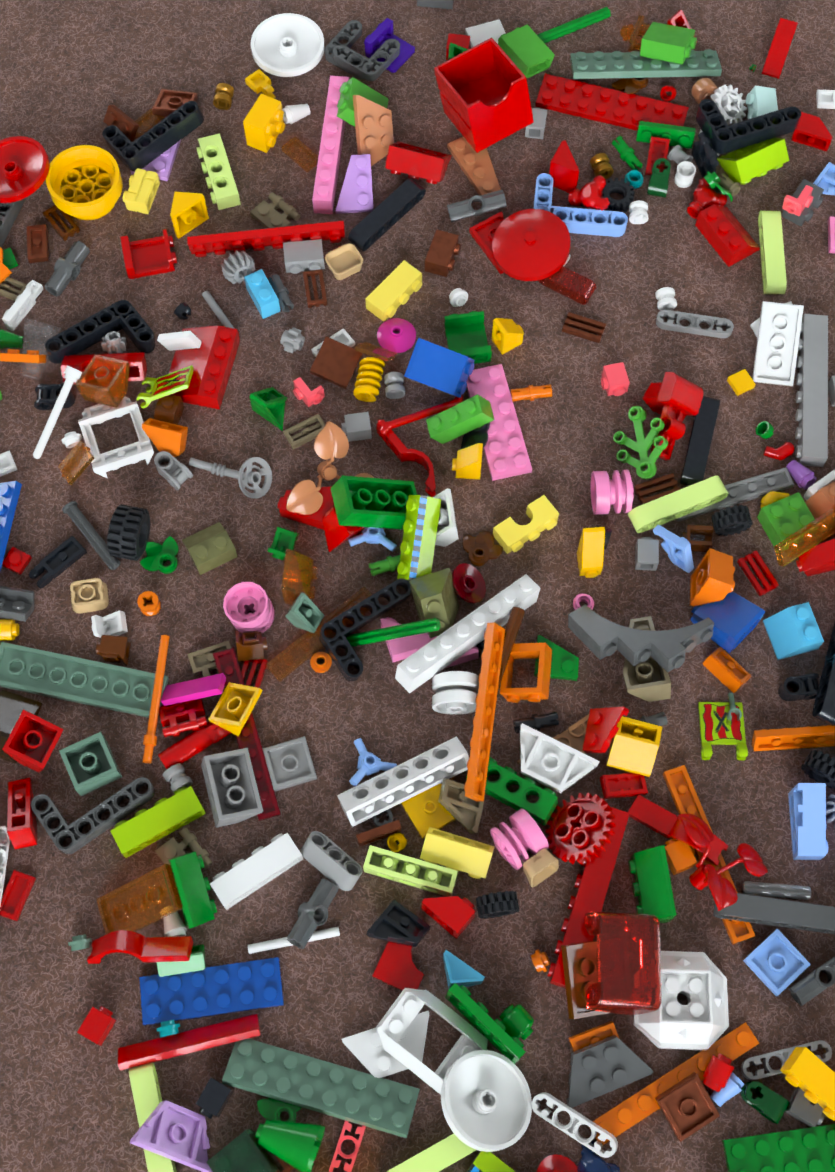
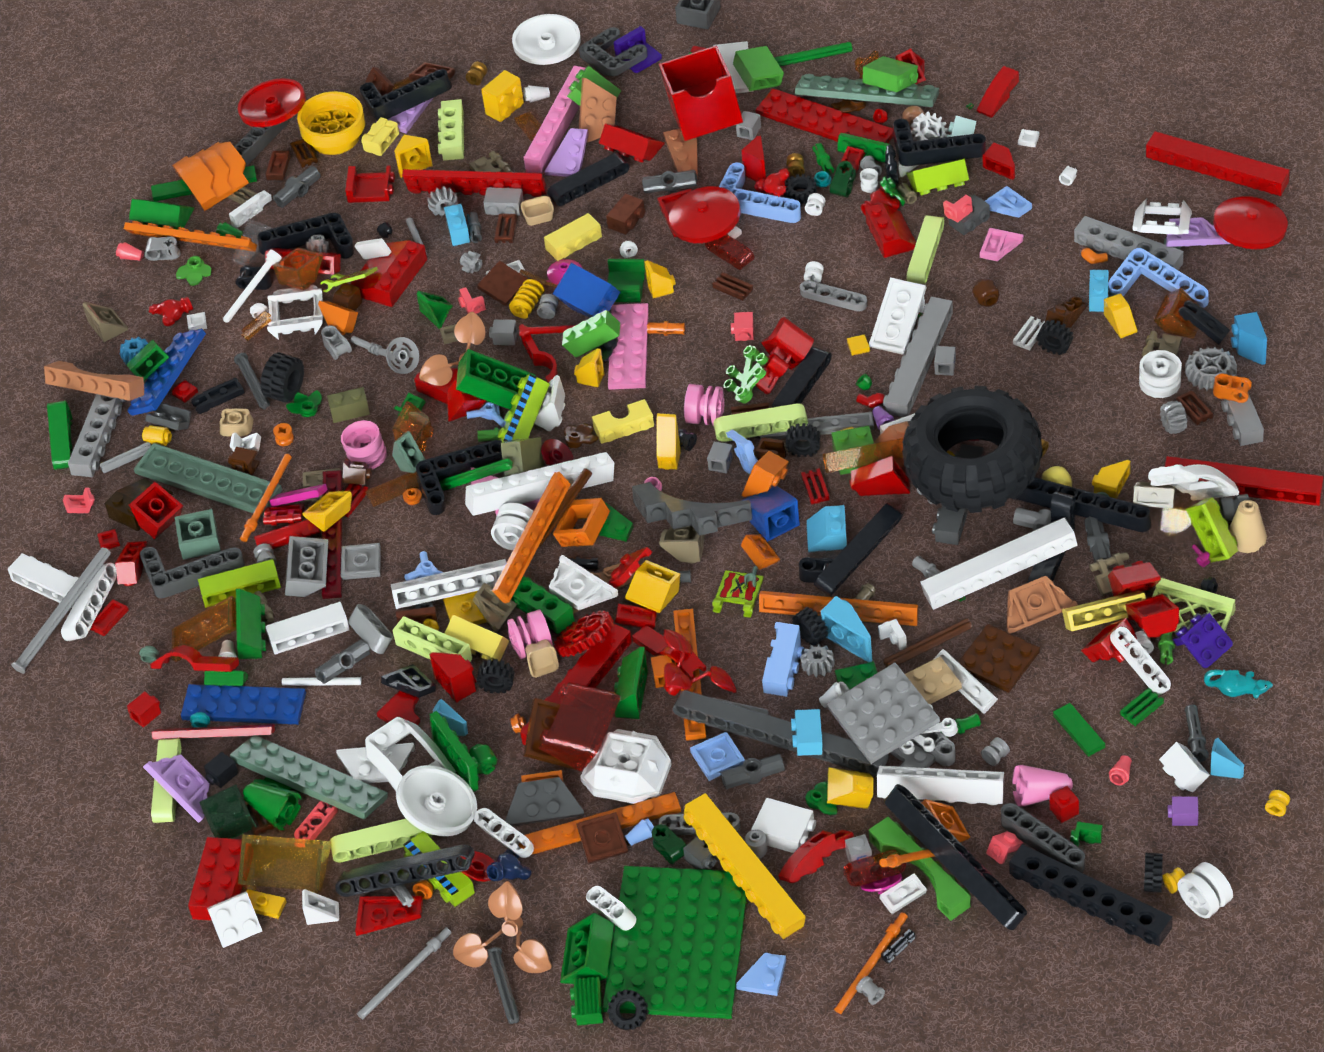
camera: 20 degrees right, 20 degrees down
(260, 82) = (513, 66): yellow plate -> none
(718, 1072) = (633, 813): red brick -> none

